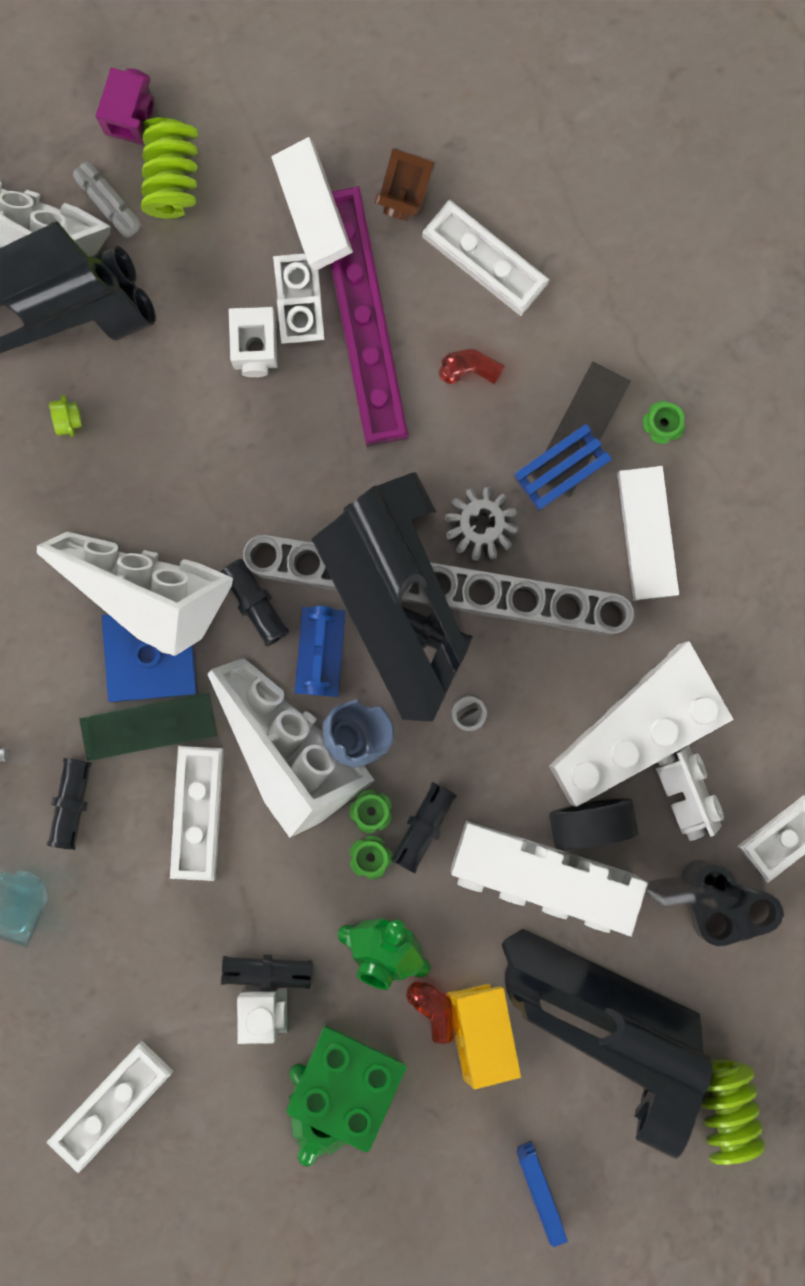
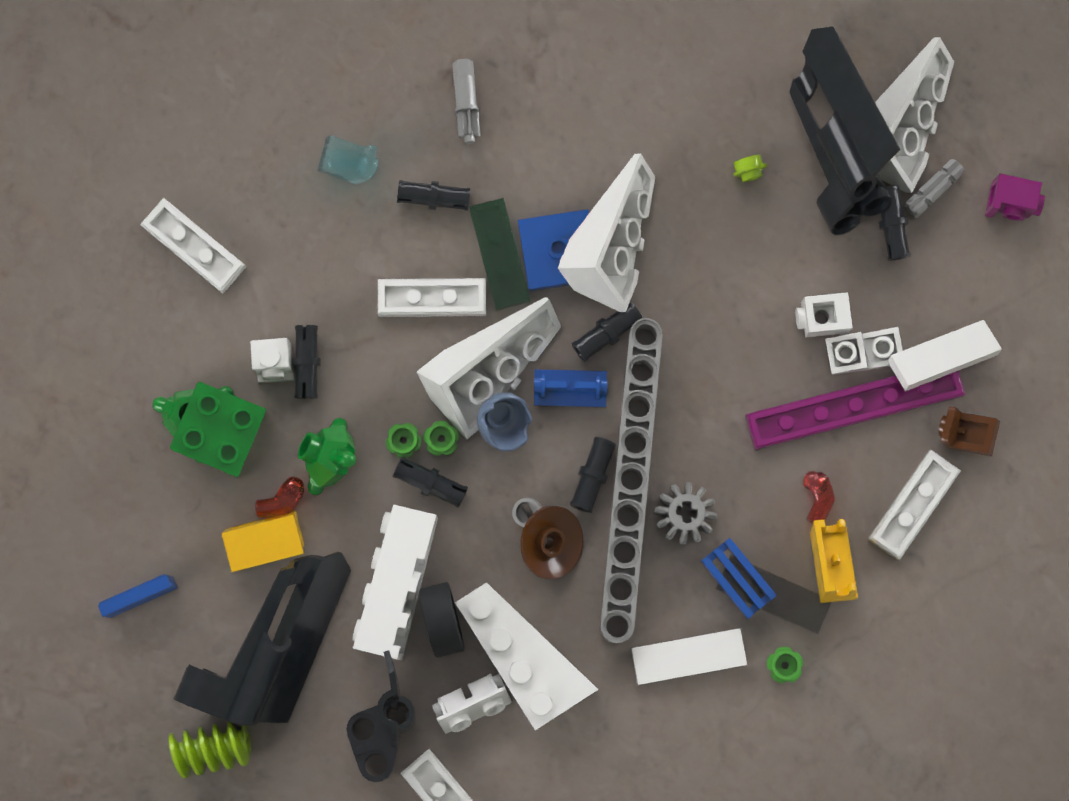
camera: 85 degrees right, 5 degrees down
(153, 250) = (894, 227): none -> black pin
(166, 167) = (964, 235): lime piece -> none
(372, 560) = (647, 420): black panel -> none
(513, 674) = (562, 546): none -> reddish brown dish
(549, 356) = (833, 562): none -> yellow hinge

